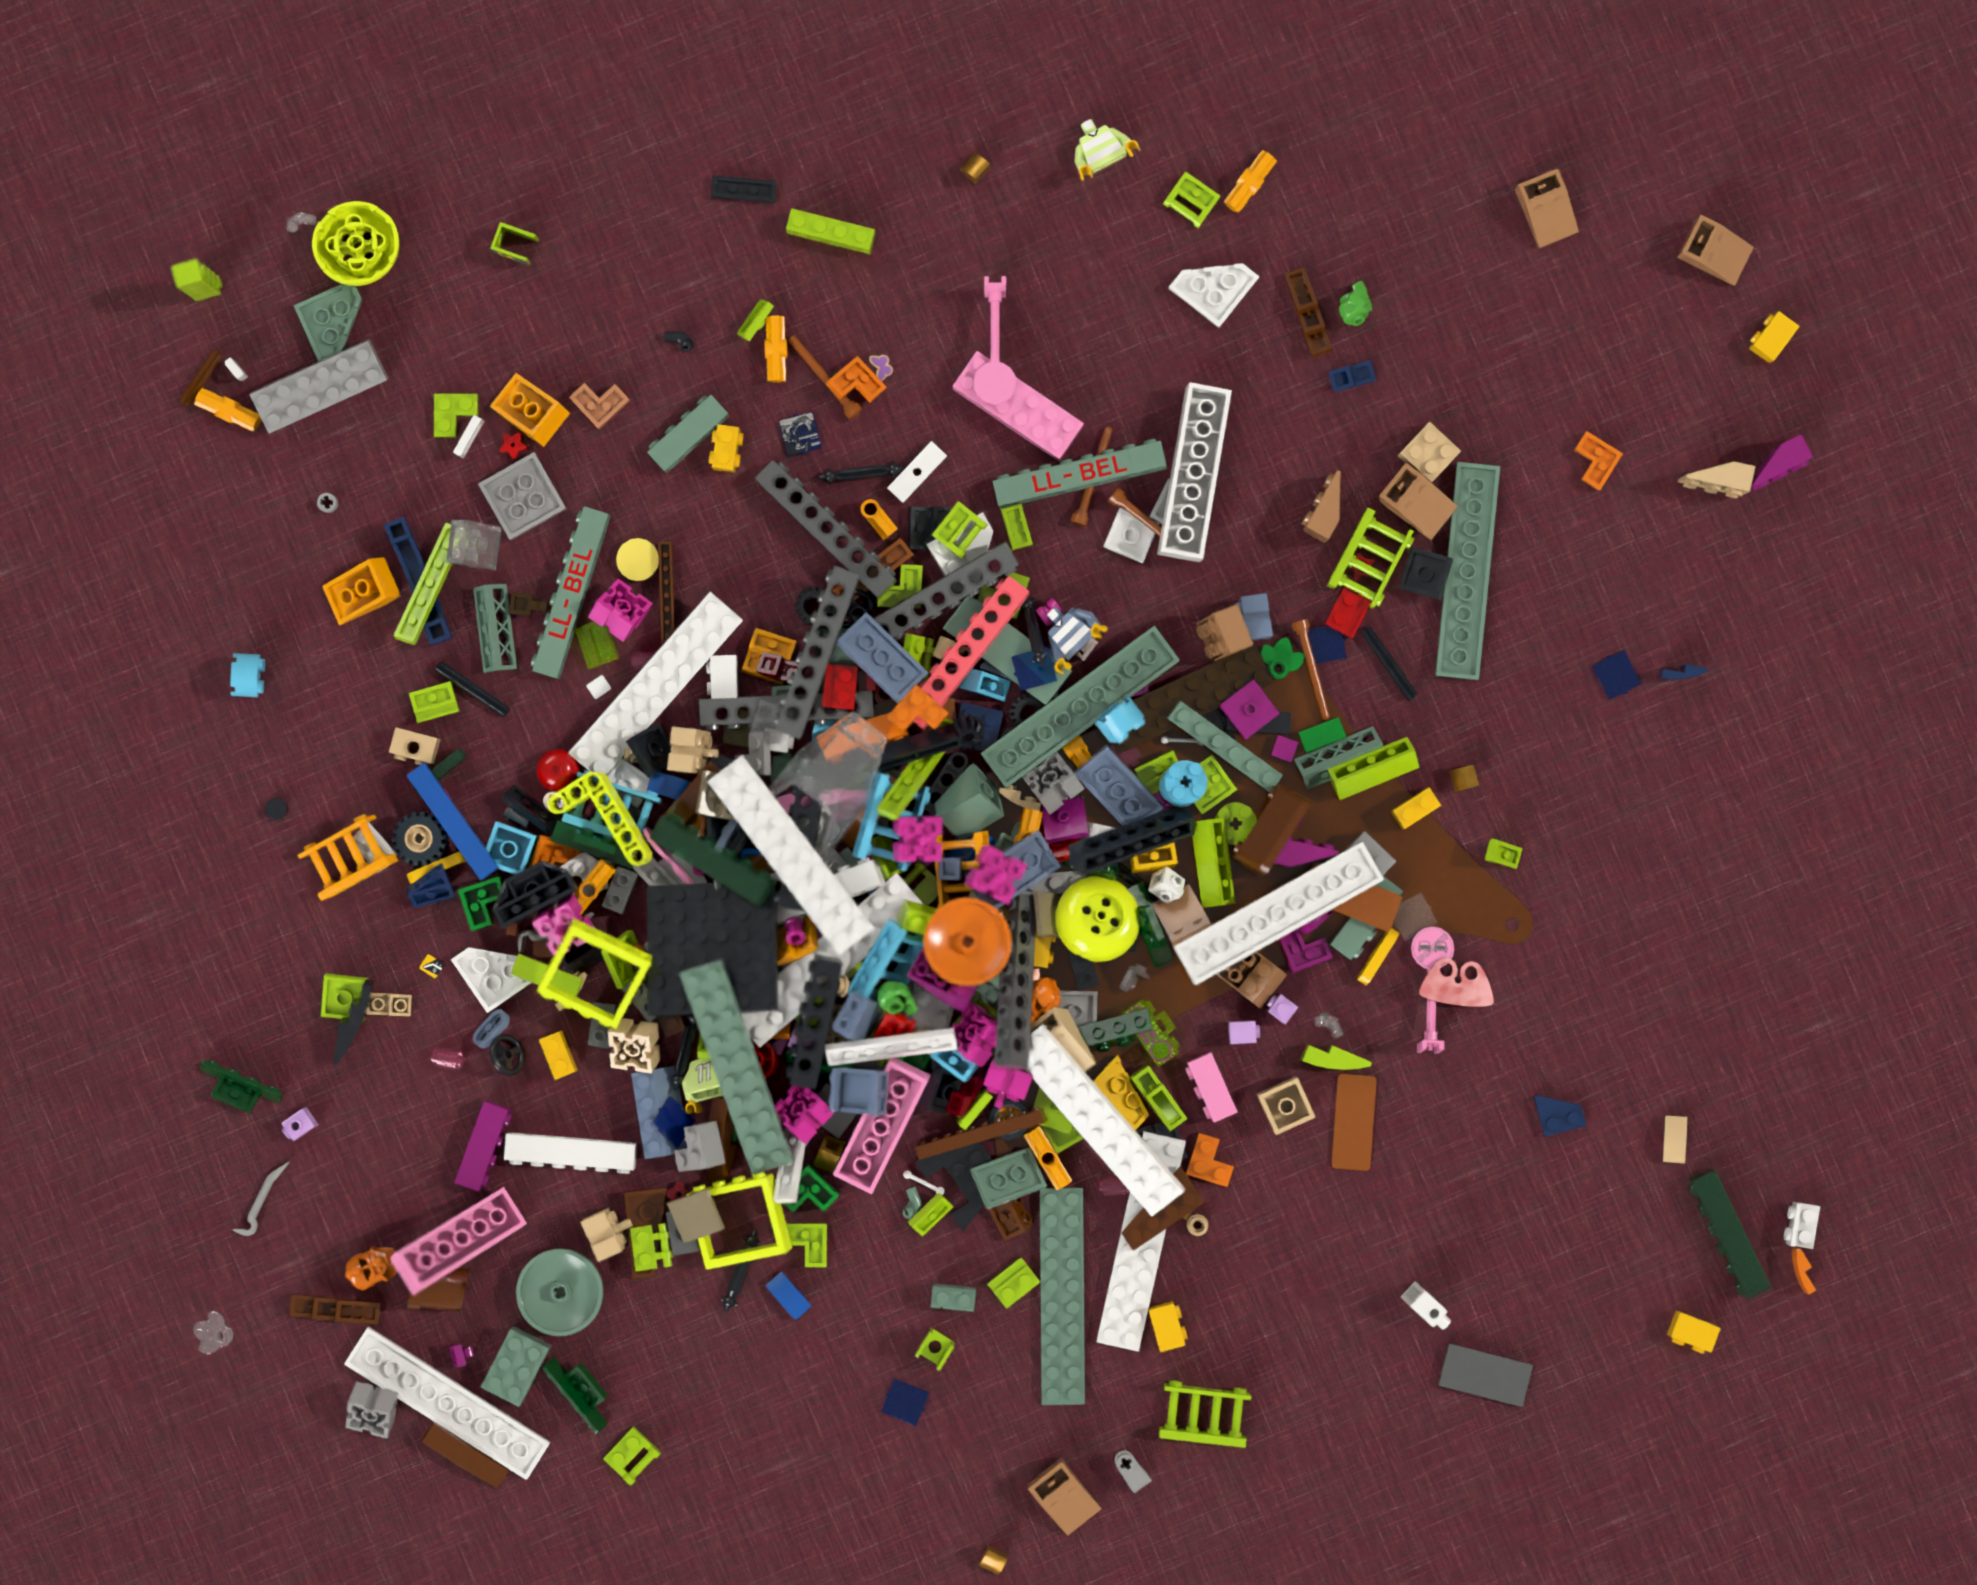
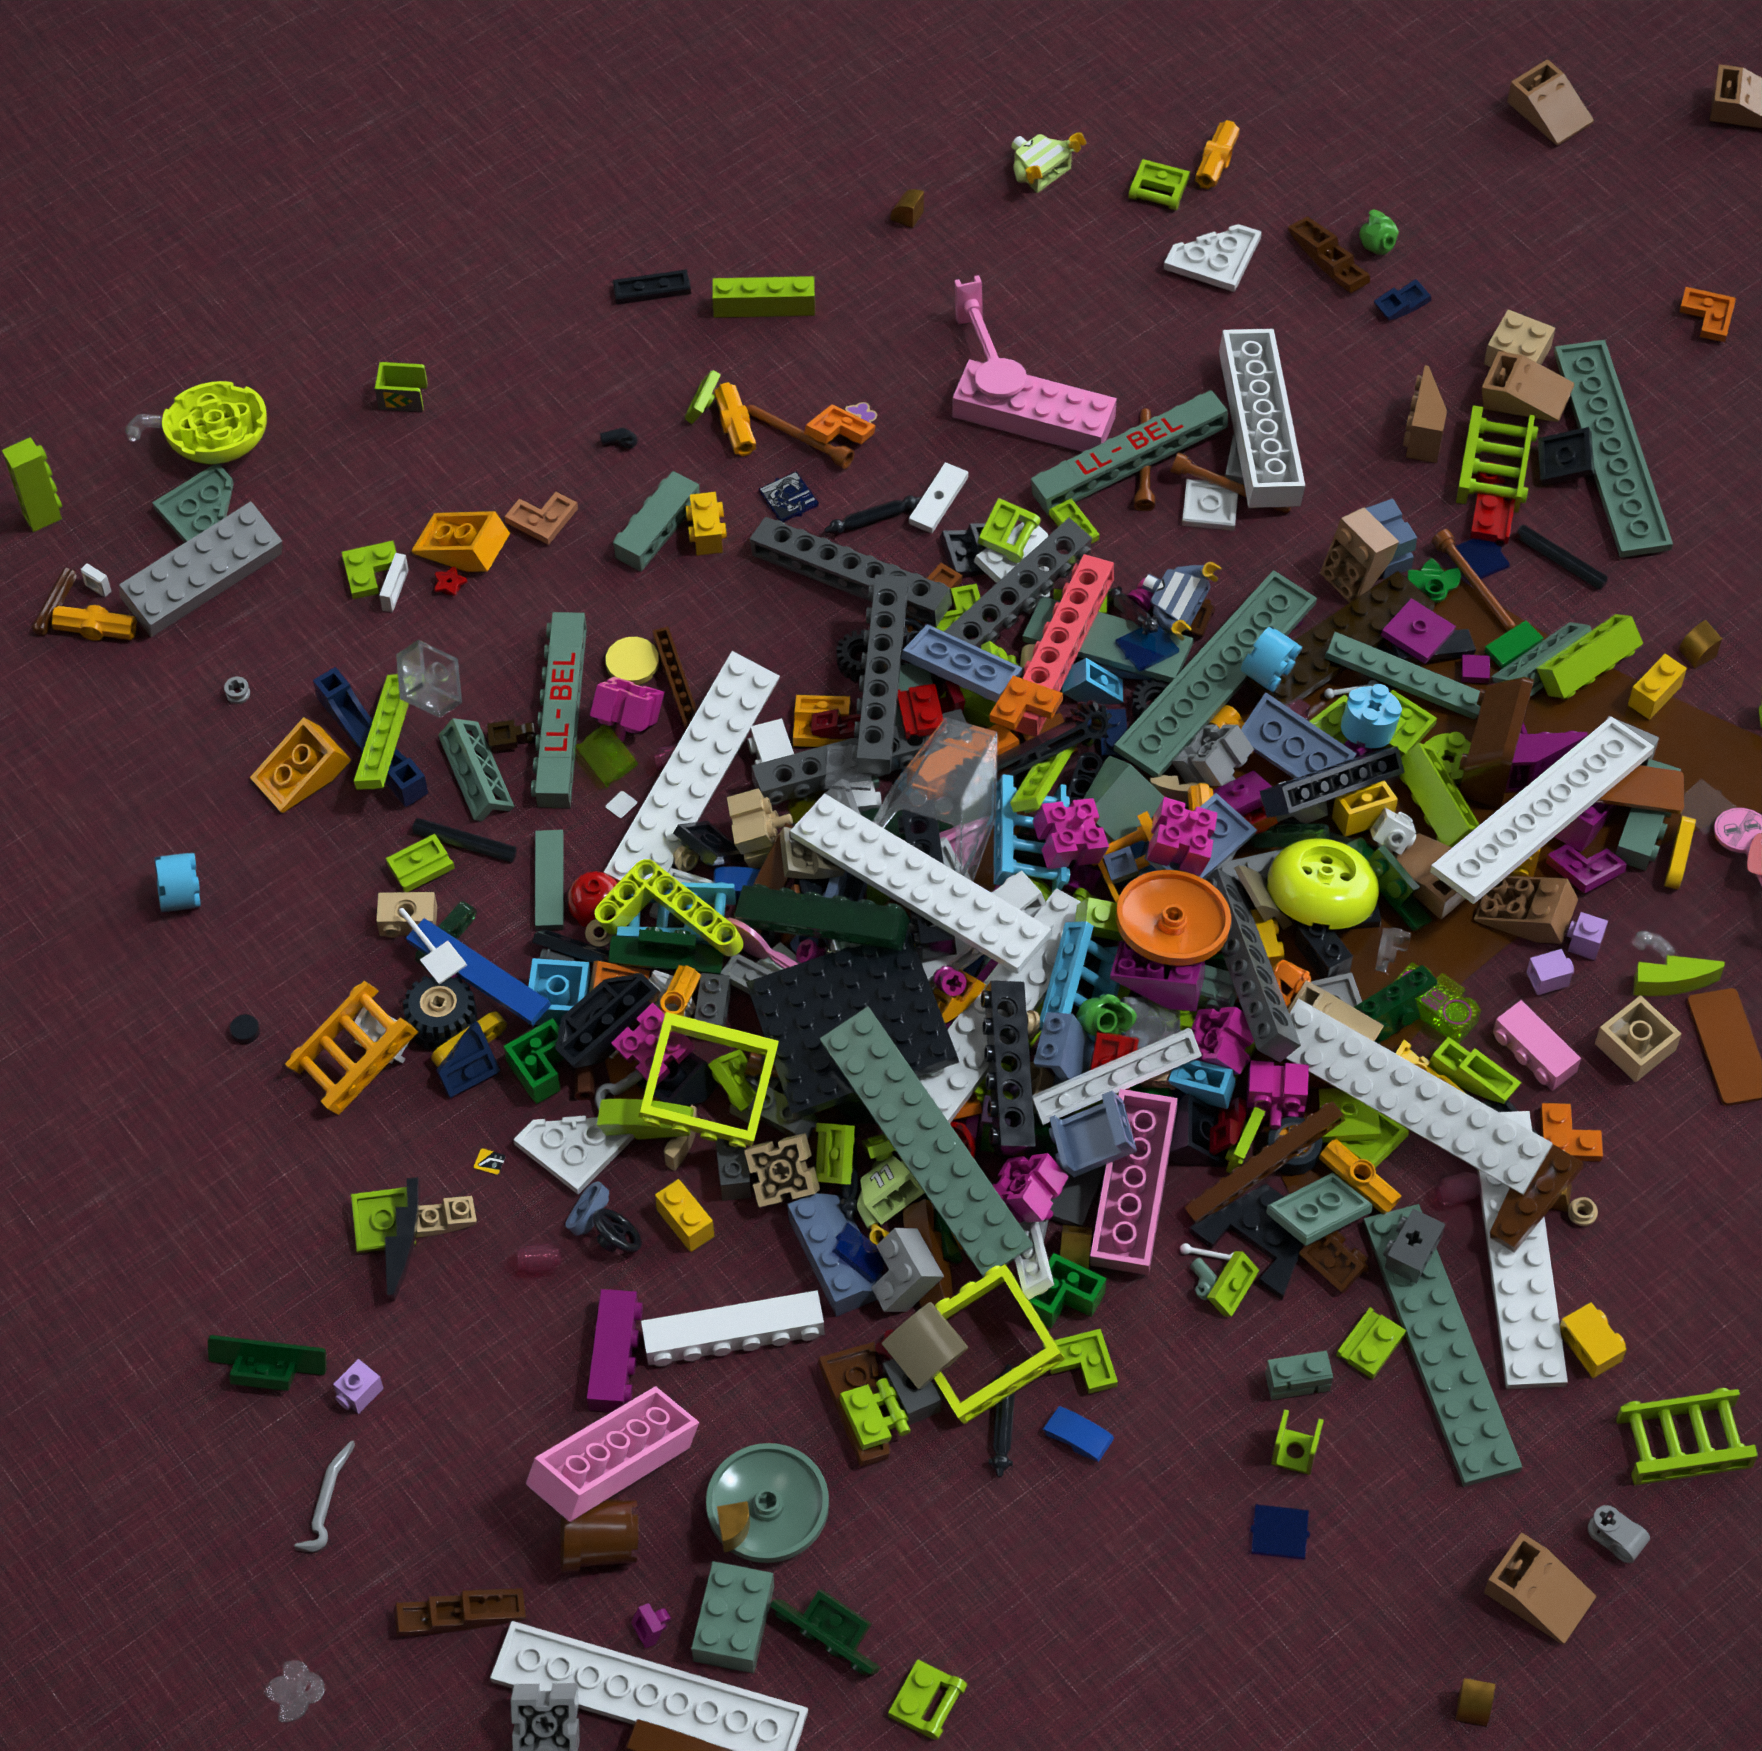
camera: 10 degrees left, 30 degrees down
(371, 1267) = (500, 1537): orange helmet -> none
(428, 806) = (441, 961): none -> white piece
(522, 496) = (474, 627): light grey plate -> none
(528, 741) = (549, 880): none -> sand green tile
(529, 1309) = (733, 1524): none -> pearl gold brick
(606, 1233) = (807, 1410): tan brick -> none
(675, 1042) = (834, 1153): none -> lime plate
(879, 521) = (907, 551): light orange piece -> none
(1062, 1238) = (1412, 1260): none -> dark grey brick

